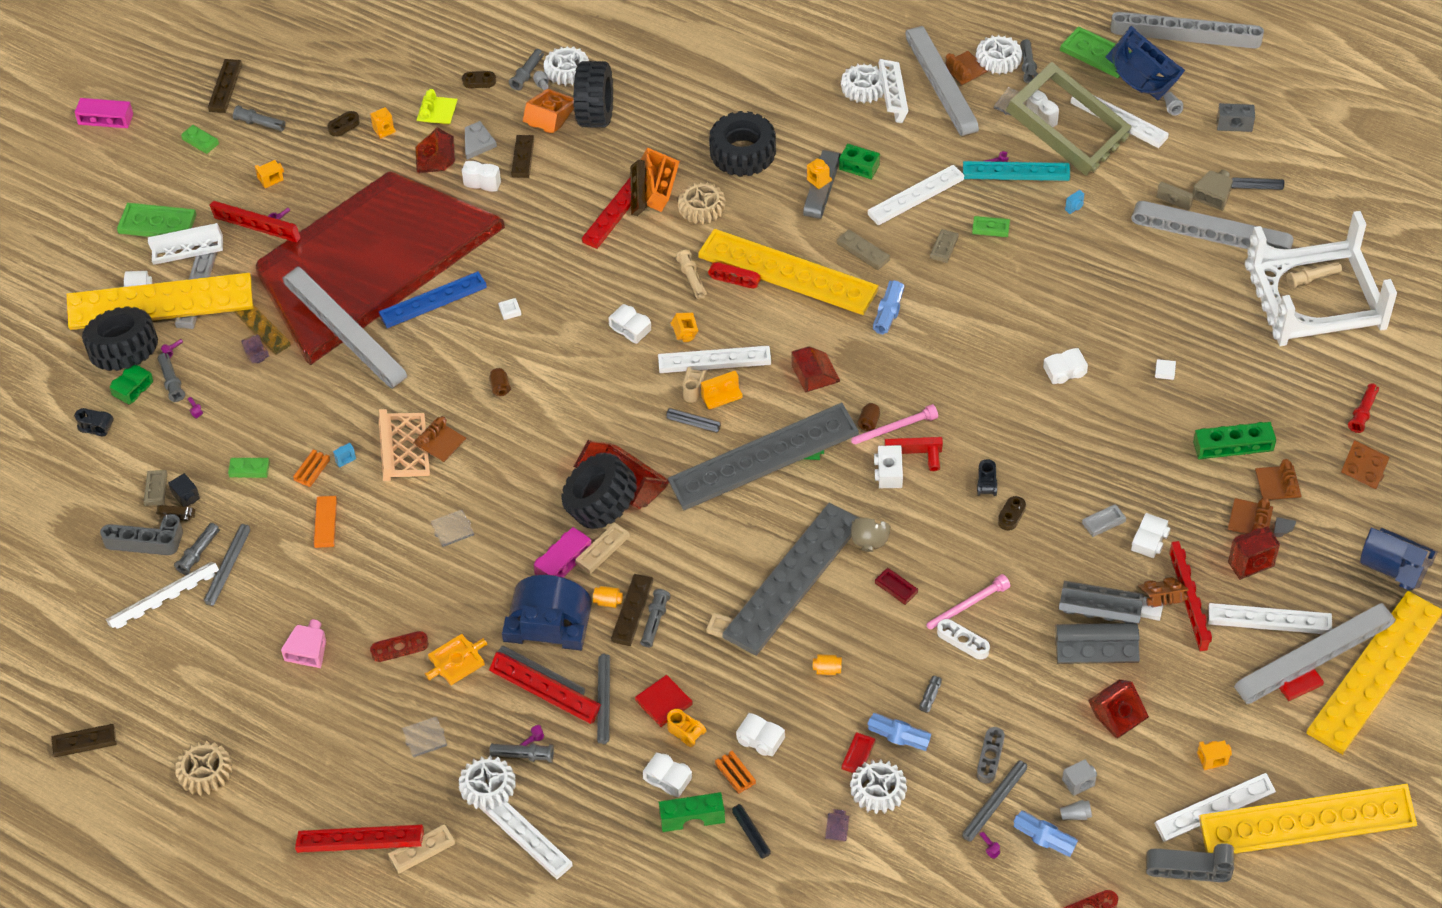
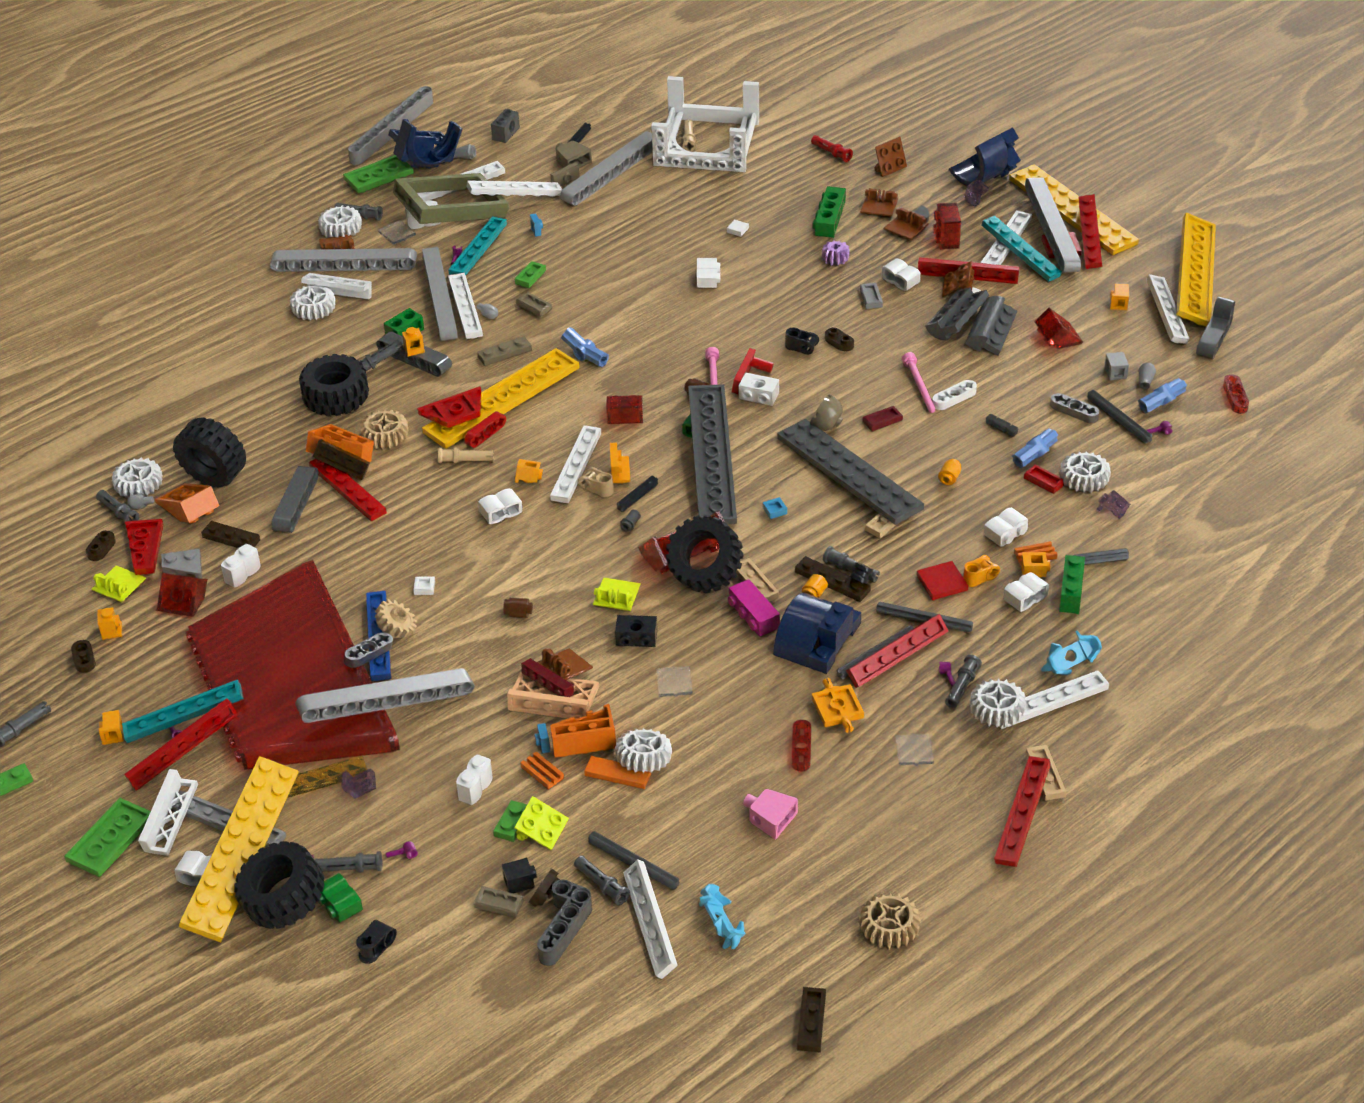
camera: 70 degrees left, 10 degrees down
(189, 633) = (714, 903): none -> medium azure piece
(247, 486) = (540, 823): none -> neon yellow hinge
(280, 424) = (474, 779): none -> white brick
(292, 207) = (181, 711): none -> teal plate
(345, 522) = (643, 750): none -> white gear
(354, 482) = (584, 734): none -> orange wedge
(384, 295) = (358, 656): none -> flat silver beam
(411, 432) = (547, 678): none -> dark red piece
(456, 297) = (395, 619): none -> tan gear
(494, 103) = (144, 544): none -> red wing
(499, 478) = (636, 631): none -> black brick
(547, 448) = (616, 594): none -> neon yellow hinge
(572, 825) = (1086, 648): none -> medium azure piece
(582, 178) = (295, 499): none -> dark grey beam
(636, 627) = (861, 572): none -> black wheel
(650, 426) = (627, 524): none -> dark grey pin
(709, 772) = (1036, 563): none -> light orange brick
(713, 533) = (774, 508): none -> dark azure plate
(744, 241) = (454, 409): none -> red wing
(791, 156) = (371, 360): none -> dark grey pin
(917, 215) = (488, 310): none -> light grey cylinder
(923, 168) = (439, 294): none -> light grey beam
(1116, 161) = (514, 188): none -> white plate
(1159, 466) = (835, 252): none -> lavender gear
(1254, 634) = (1021, 248): none -> teal plate
(1325, 695) = (1090, 231): none -> red plate
(1344, 564) = (975, 191): none -> bracket

